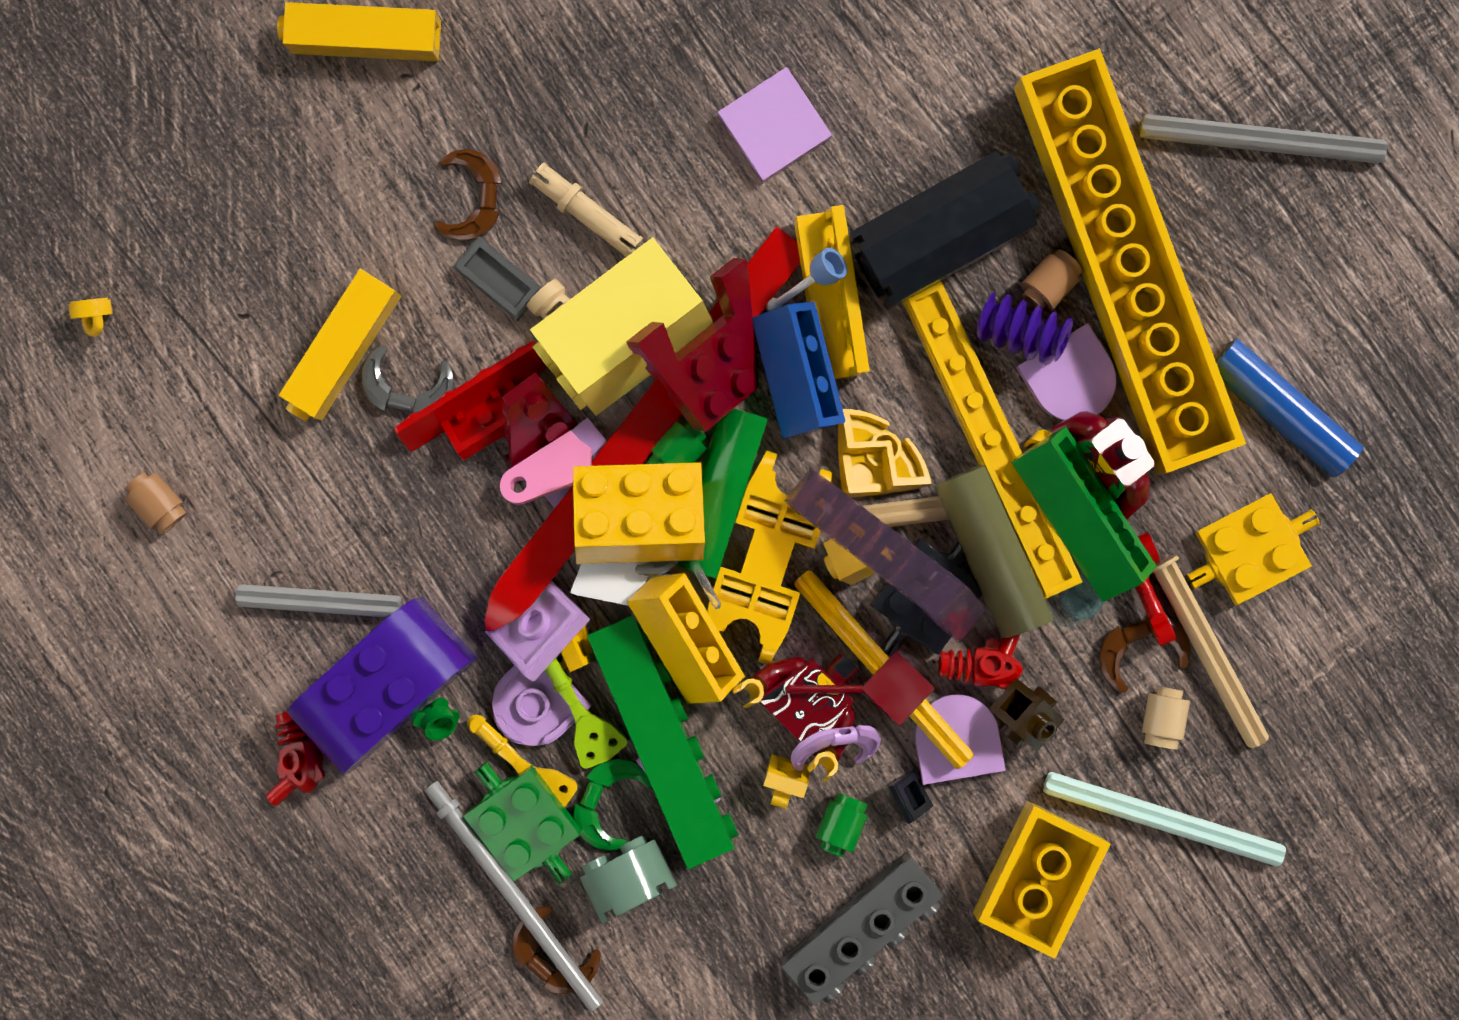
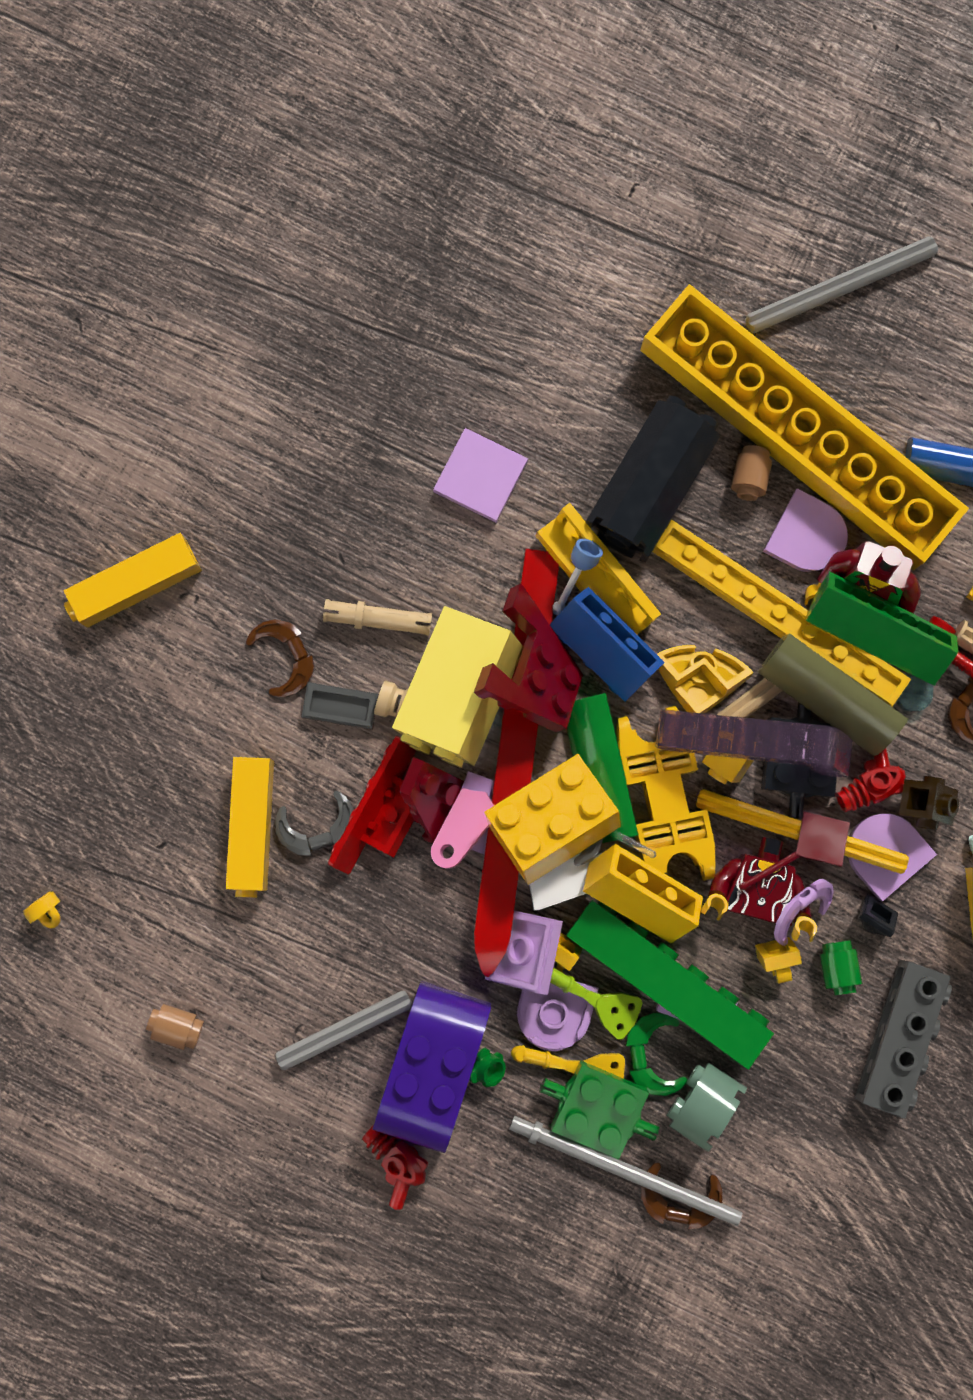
camera: 35 degrees left, 5 degrees down
(678, 445) = (549, 752): green brick -> none
(1023, 330) = (755, 519): dark purple piece -> none

